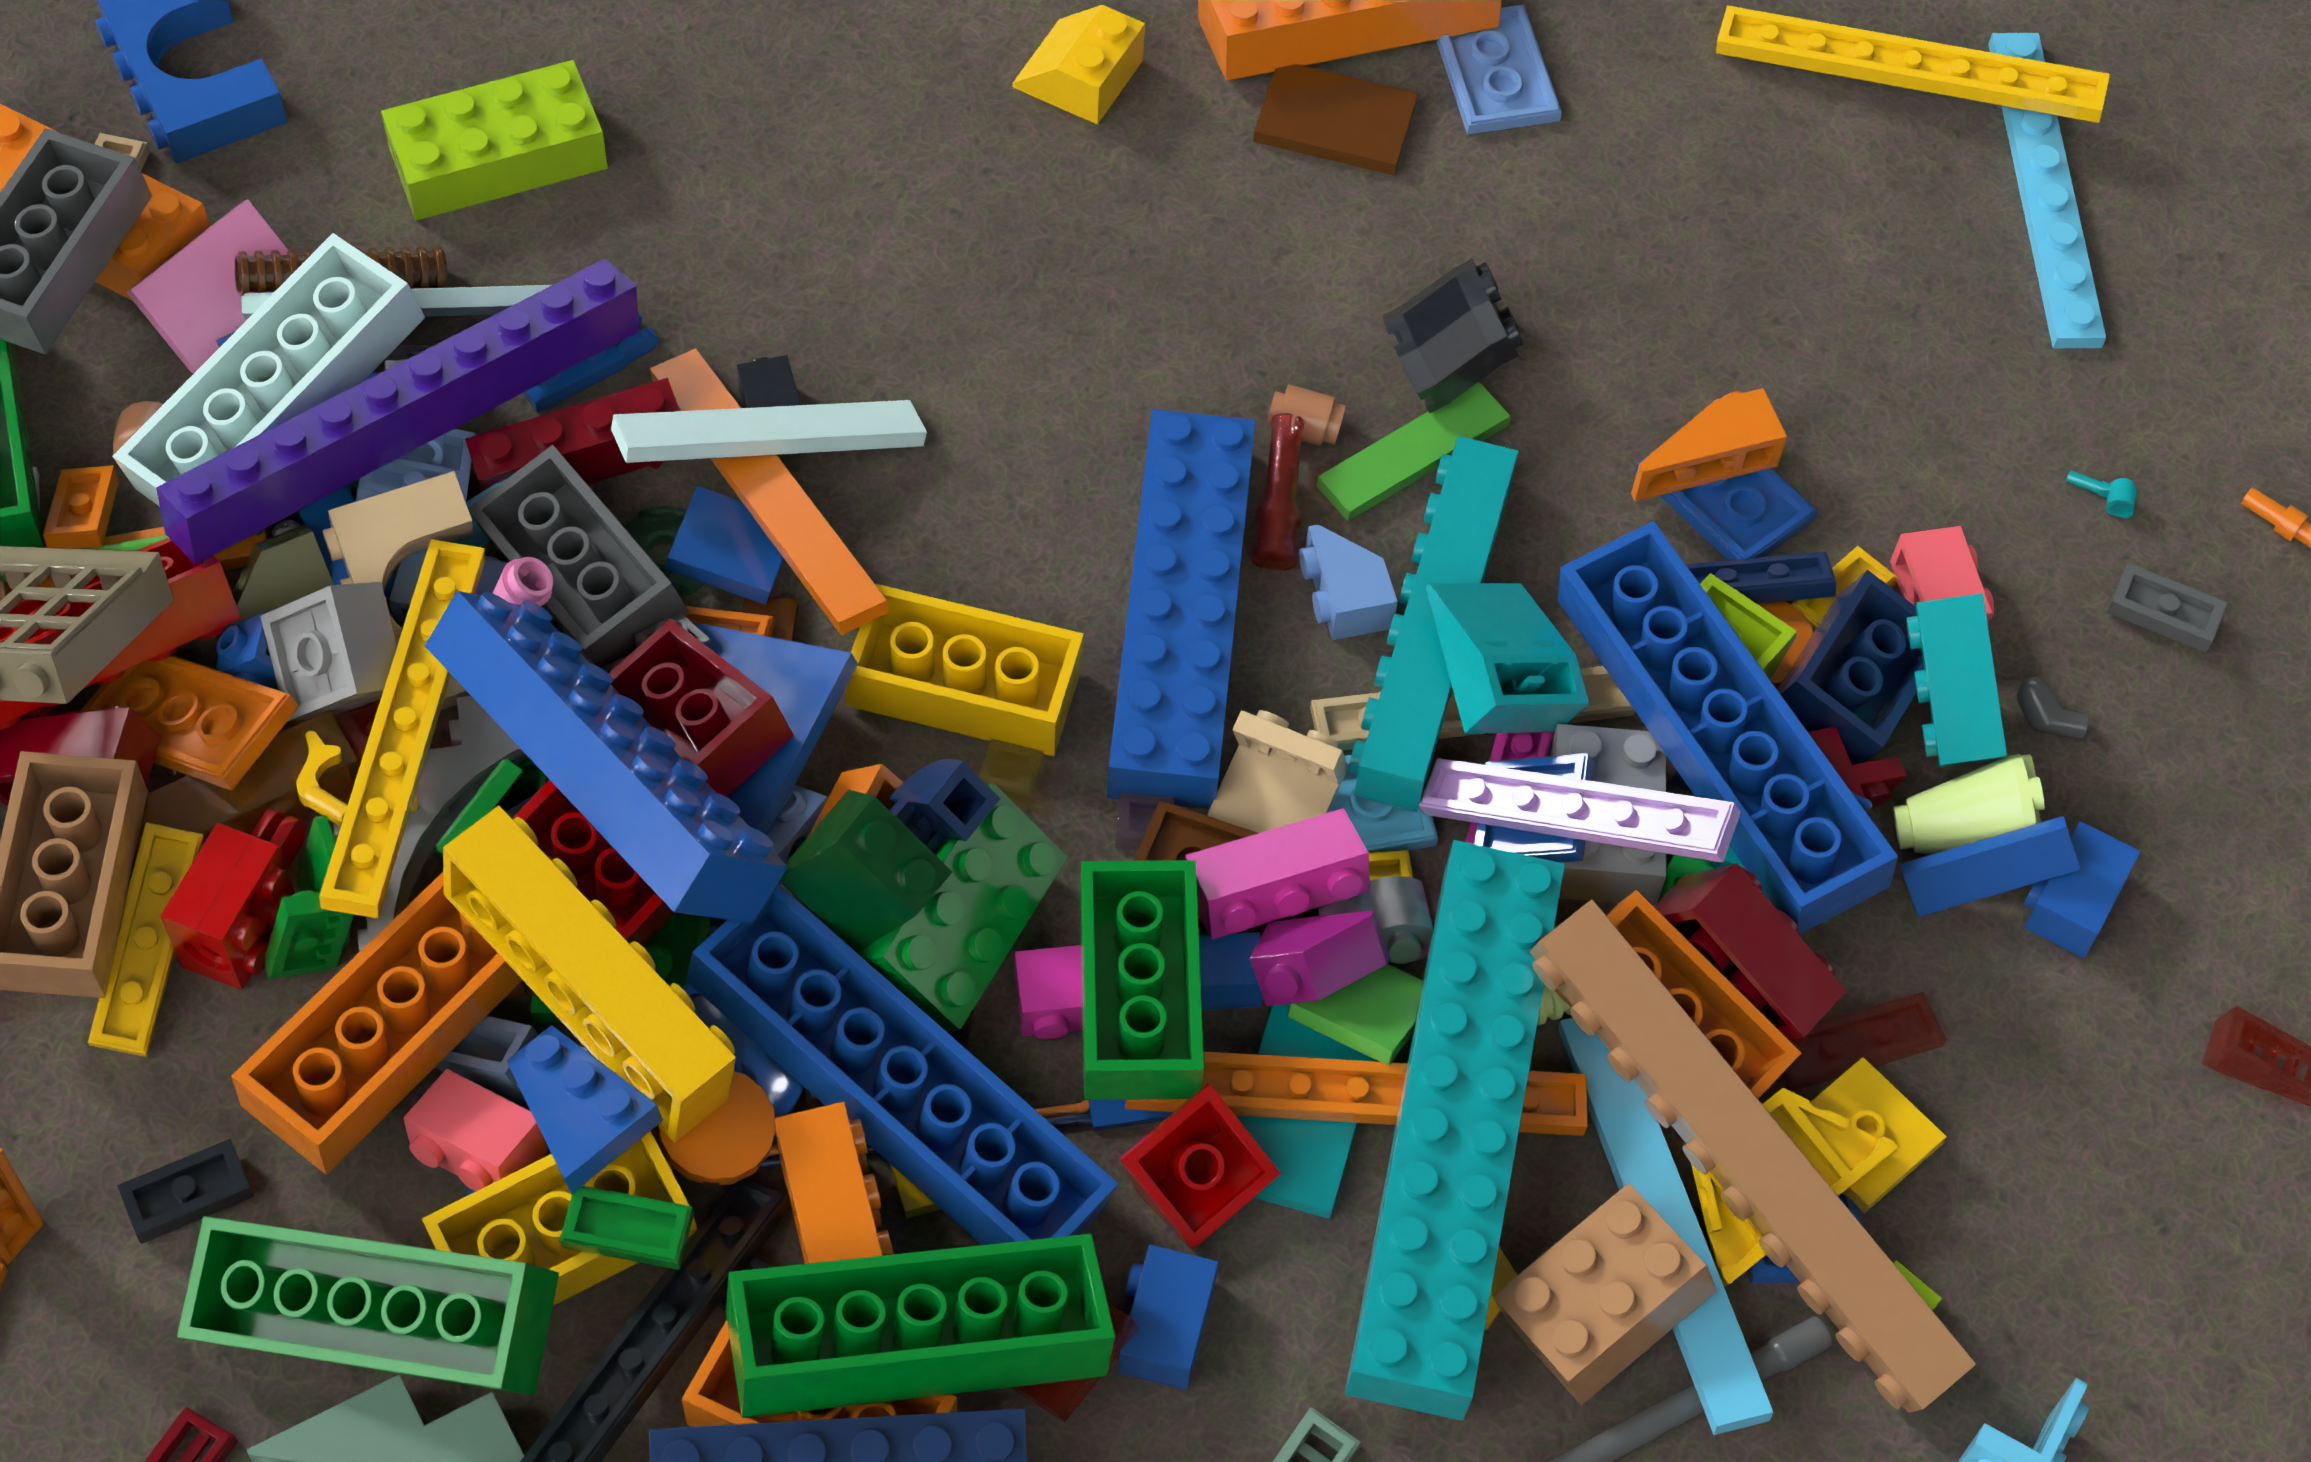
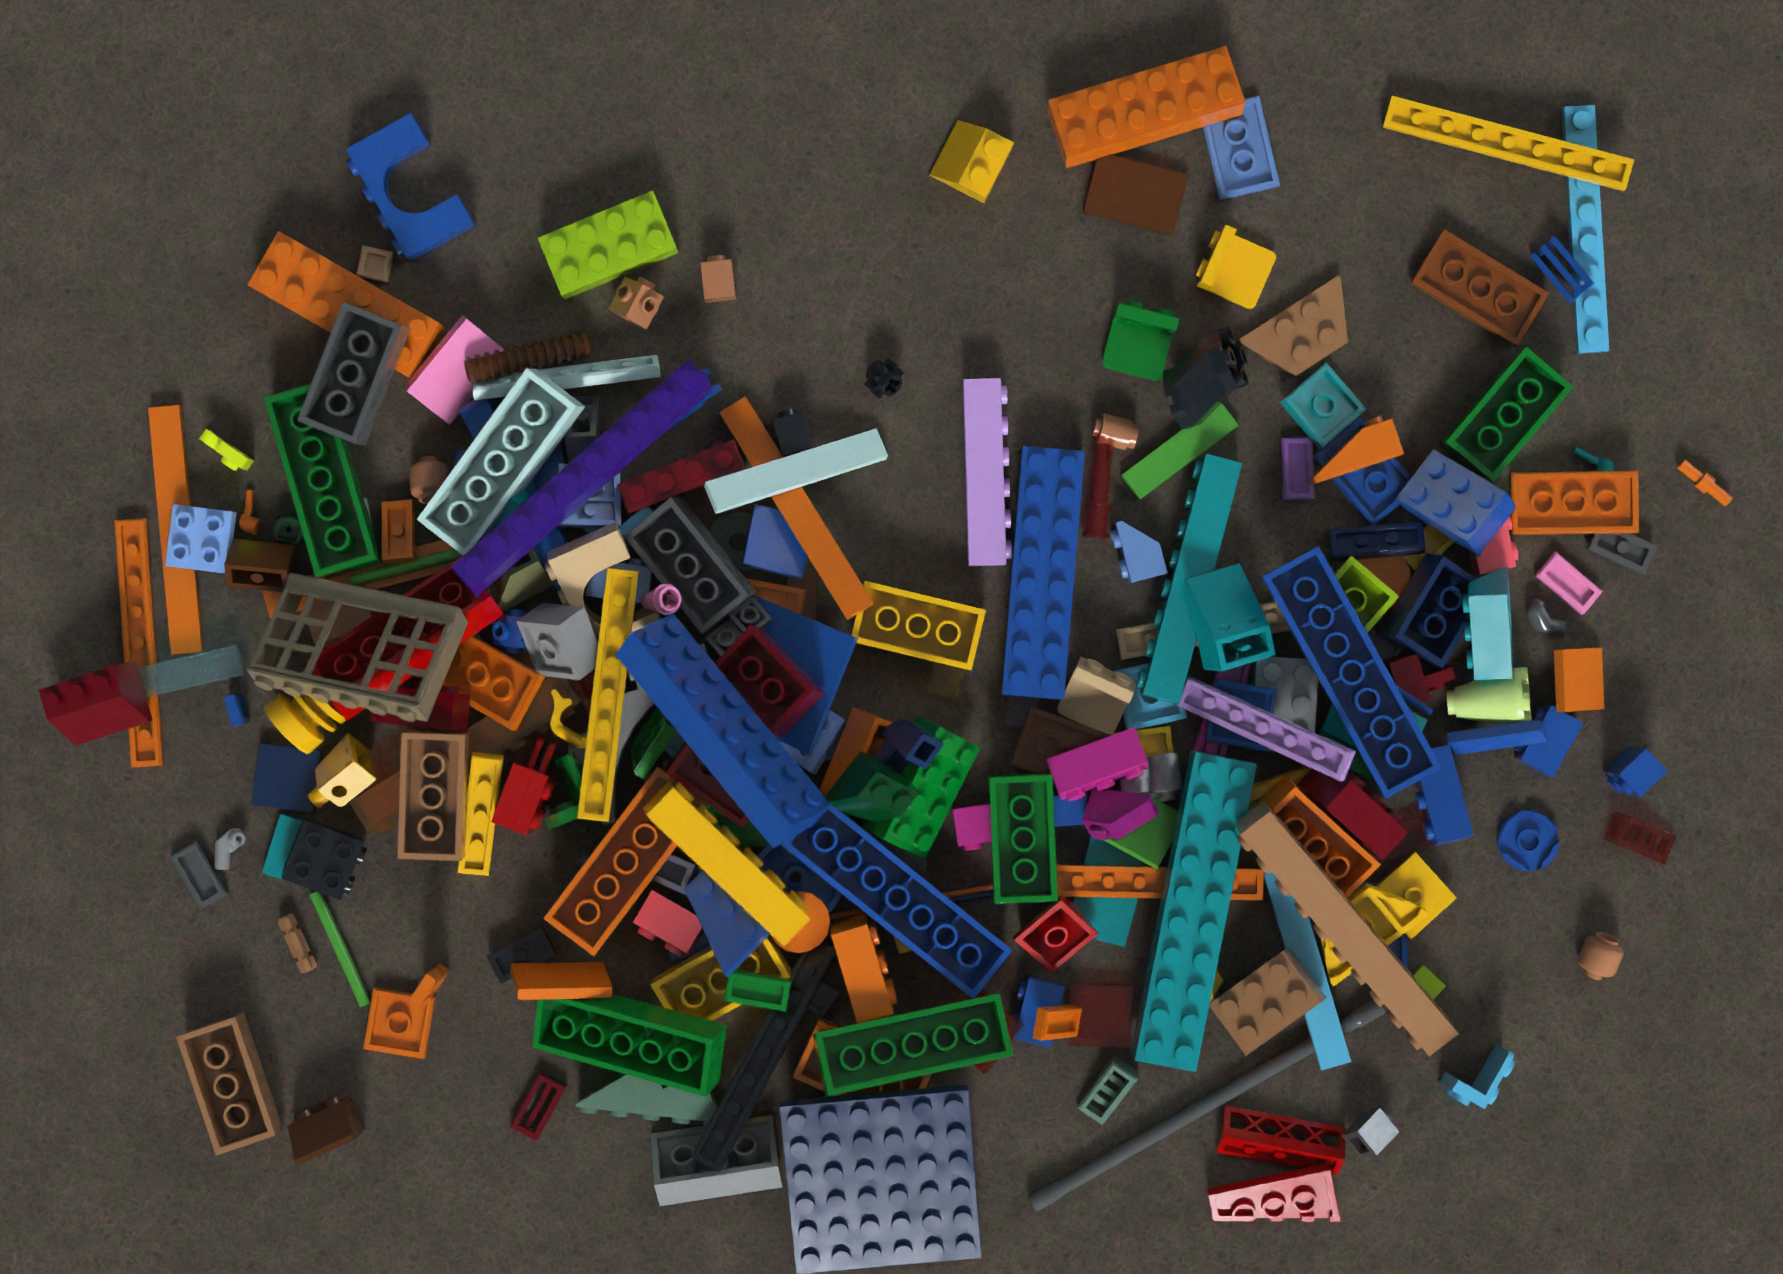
camera: 10 degrees right, 30 degrees up
(196, 1201) = (561, 980): none -> orange tile
(529, 211) = (636, 301): none -> nougat brick
(666, 193) = (718, 279): none -> nougat brick
(925, 326) = (883, 378): none -> black gear
(1088, 465) = (985, 472): none -> lavender brick
(1201, 1314) = (1057, 1022): none -> orange tile
(1286, 1337) = (1104, 1015): none -> clear red tile
(1345, 289) = (1139, 340): none -> green bracket
(1491, 208) = (1235, 268): none -> yellow bracket
(1608, 299) = (1303, 331): none -> medium nougat wing
(1608, 481) = (1297, 468): none -> medium lavender tile
(1645, 393) = (1322, 405): none -> teal tile
(1882, 508) = (1456, 502): none -> blue brick
(1887, 250) = (1479, 288): none -> dark orange plate
(1901, 969) = (1443, 802): none -> blue brick
(1948, 407) = (1506, 415): none -> green brick
(2030, 213) = (1546, 250): none -> blue tile
(2055, 1074) = (1519, 844): none -> blue tile
(2080, 535) = (1575, 502): none -> orange tile
(2084, 661) = (1568, 583): none -> bright pink tile
(2122, 790) = (1578, 679): none -> orange tile
(2226, 1250) = (1600, 955): none -> nougat head
(2242, 928) = (1634, 772): none -> blue brick

